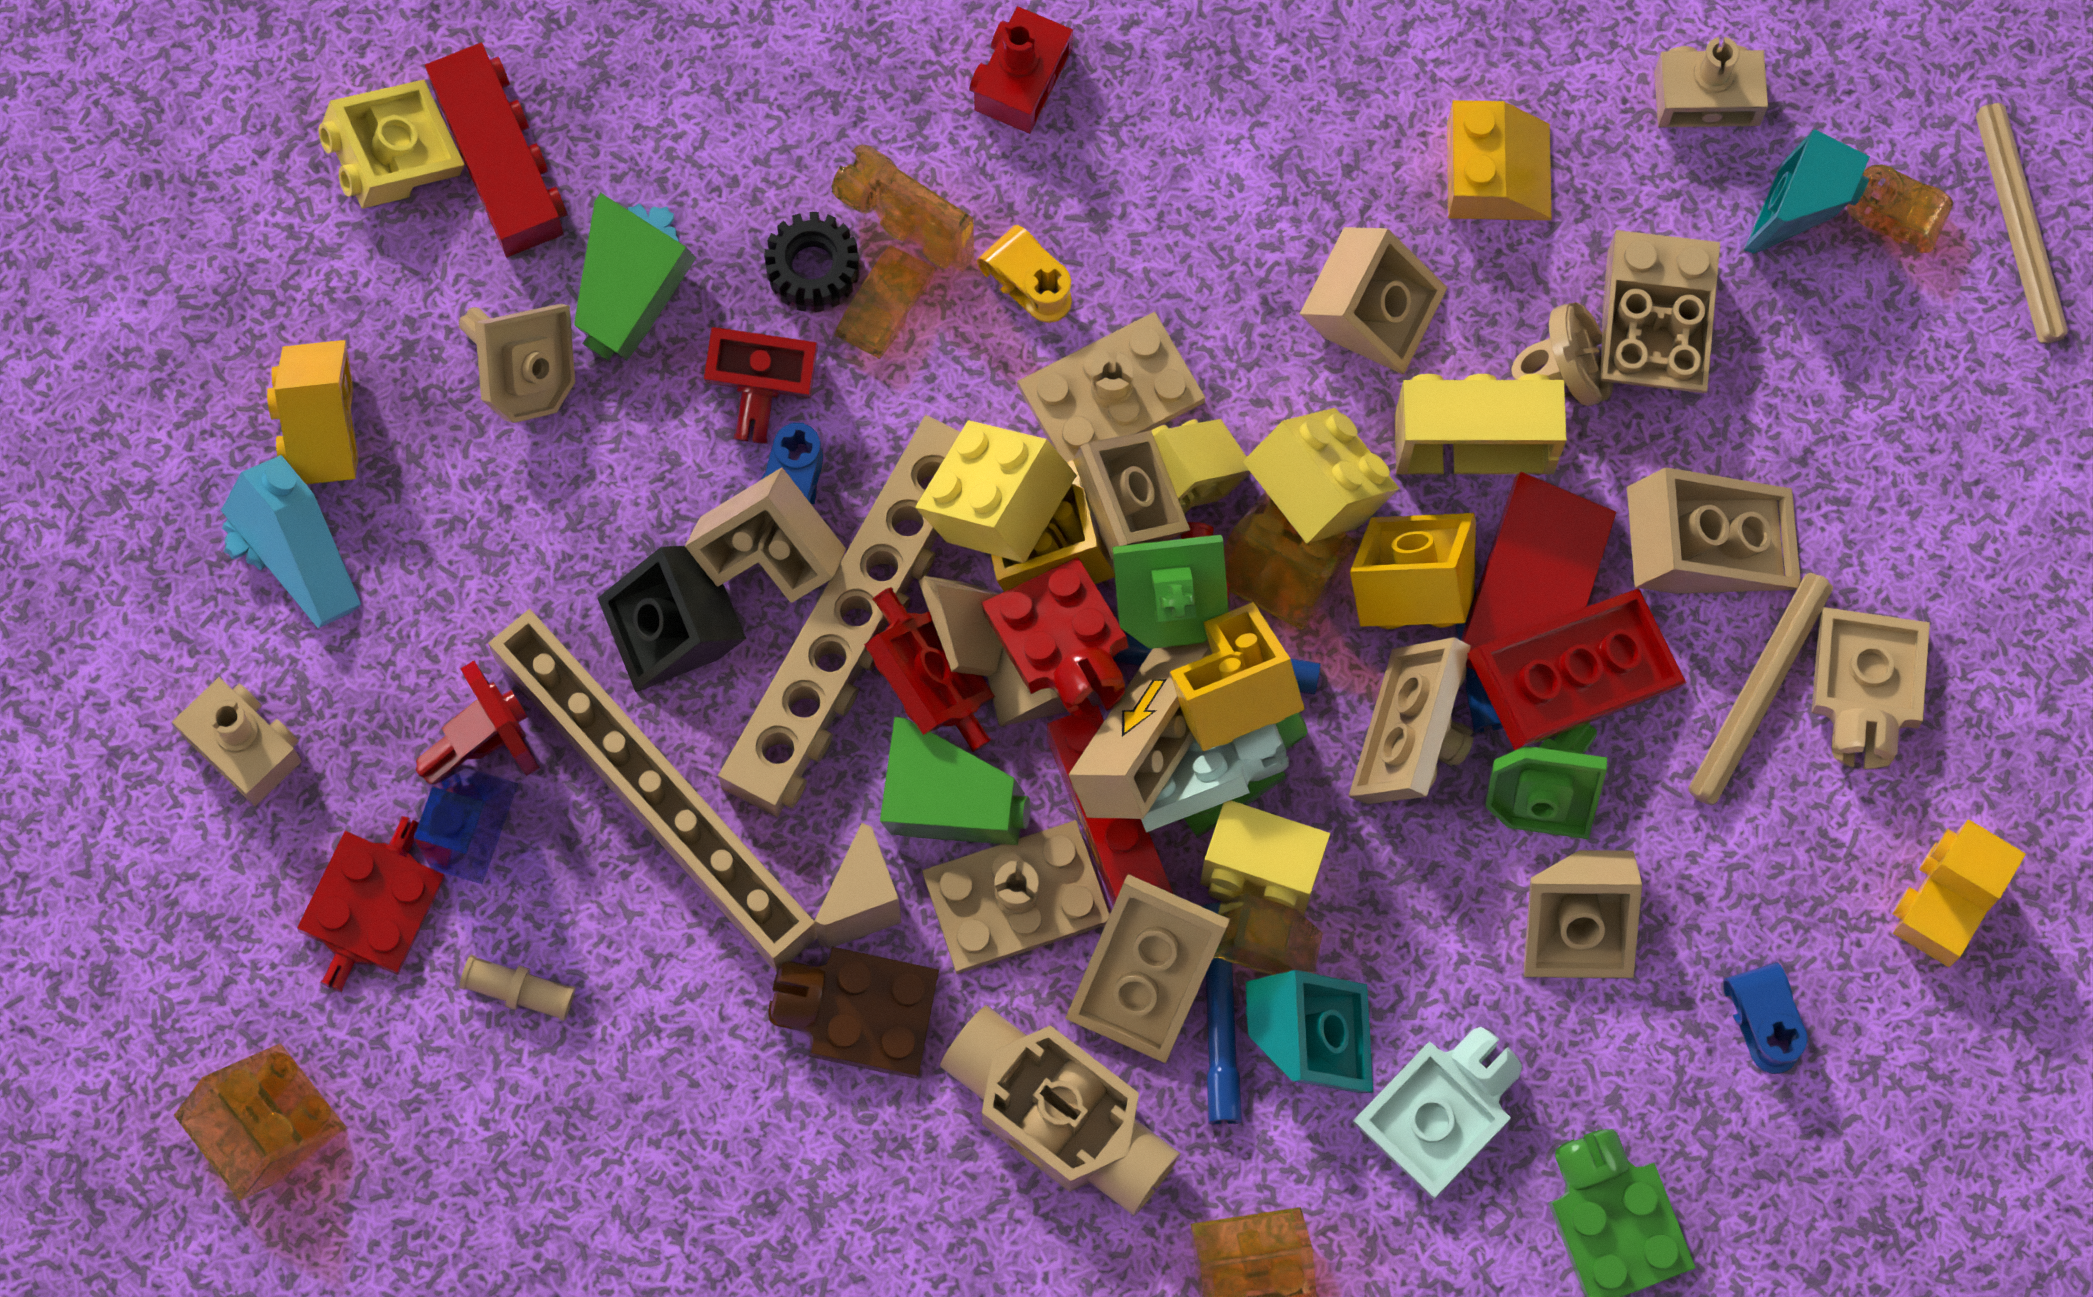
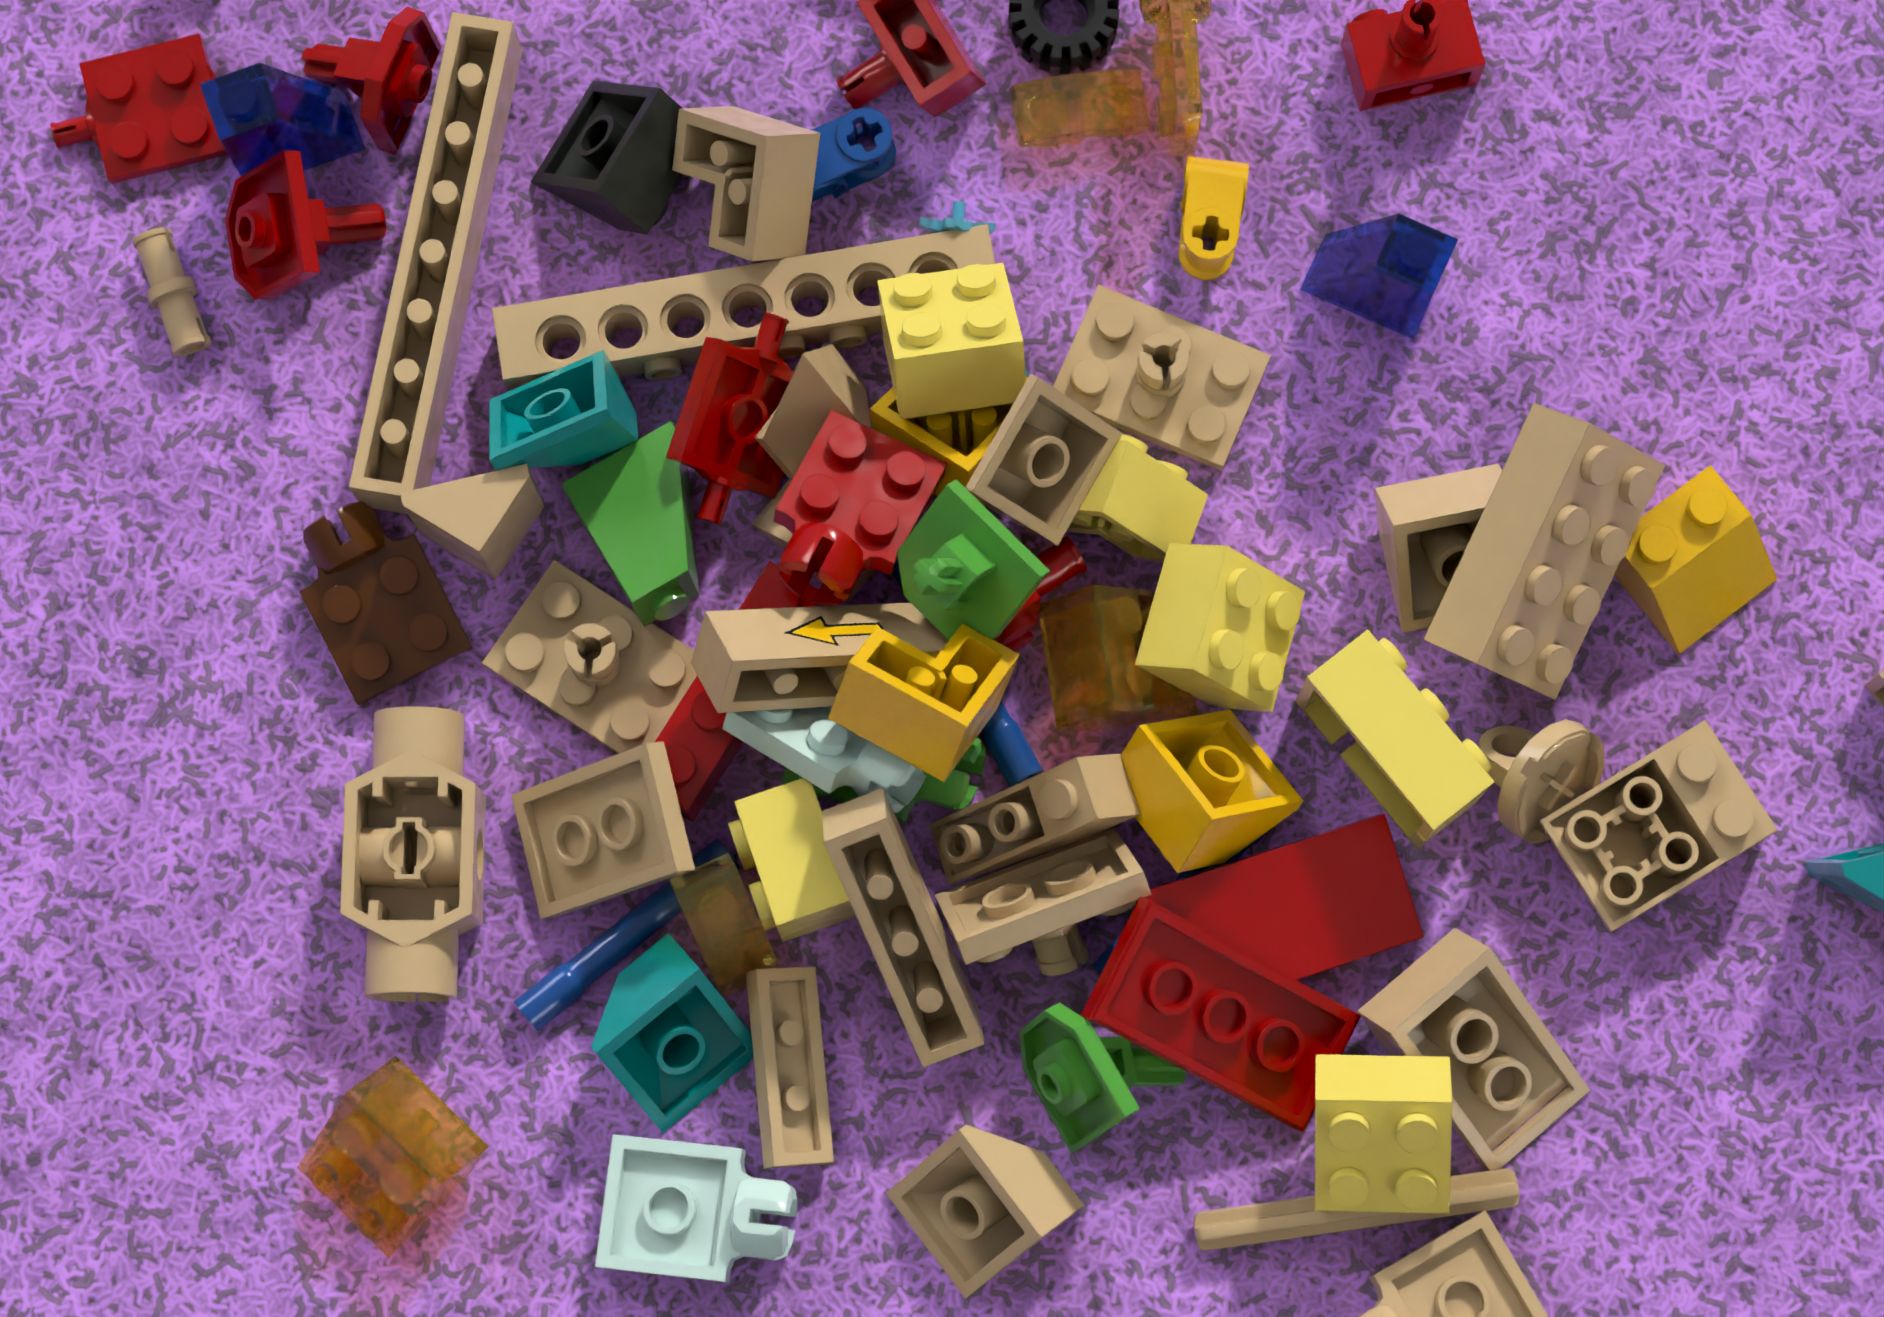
camera: 55 degrees right, 5 degrees up
(540, 877) = (281, 232): none -> red piece
(835, 783) = (562, 417): none -> teal slope
(903, 437) = (956, 223): none -> medium azure plant
(1162, 196) = (1382, 270): none -> clear blue slope
(1350, 691) = (1035, 816): none -> tan slope
(1370, 818) = (902, 927): none -> tan brick
(1395, 972) = (789, 1067): none -> tan plate
(1434, 238) = (1545, 550): none -> tan brick
(1732, 626) = (1383, 1133): none -> light yellow brick

